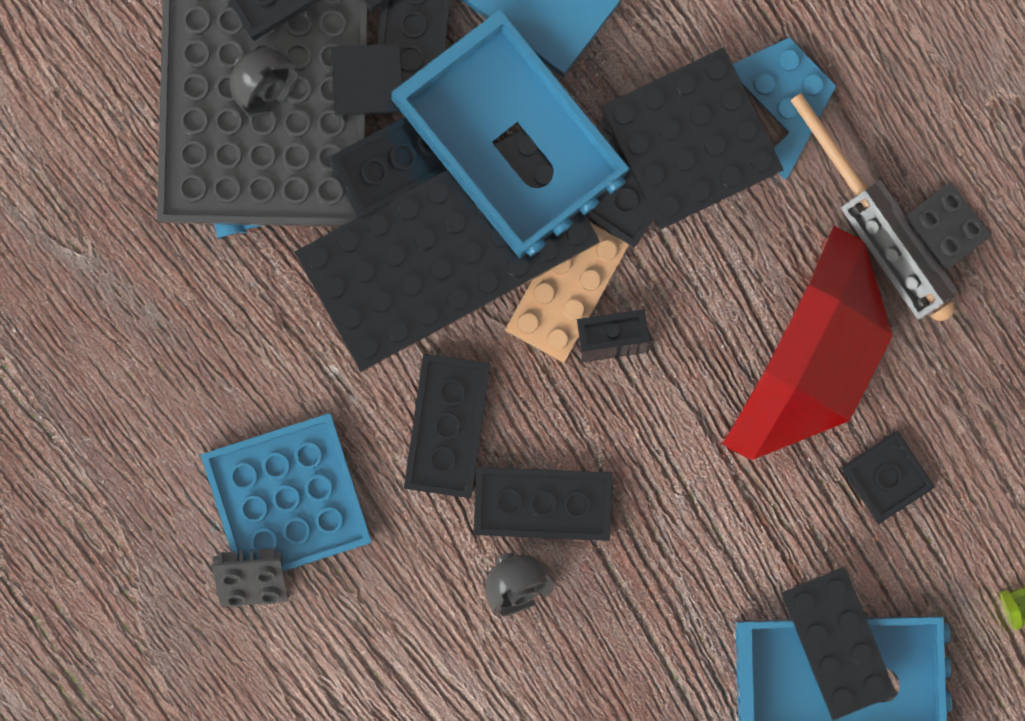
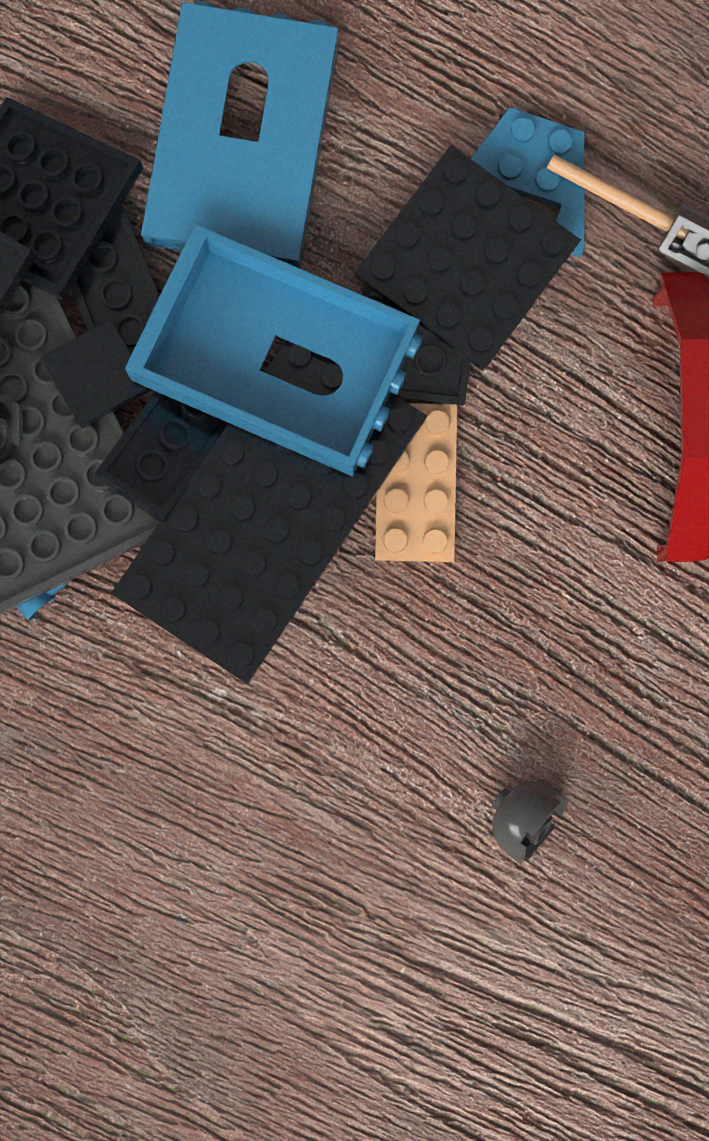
camera: 20 degrees left, 0 degrees up
(249, 580) = (247, 963): dark grey hinge -> none
(288, 493) = (239, 854): dark azure piece -> none
(447, 426) = (367, 691): black plate -> none
(543, 503) = (509, 719): black plate -> none
(613, 335) = (491, 506): black panel -> none

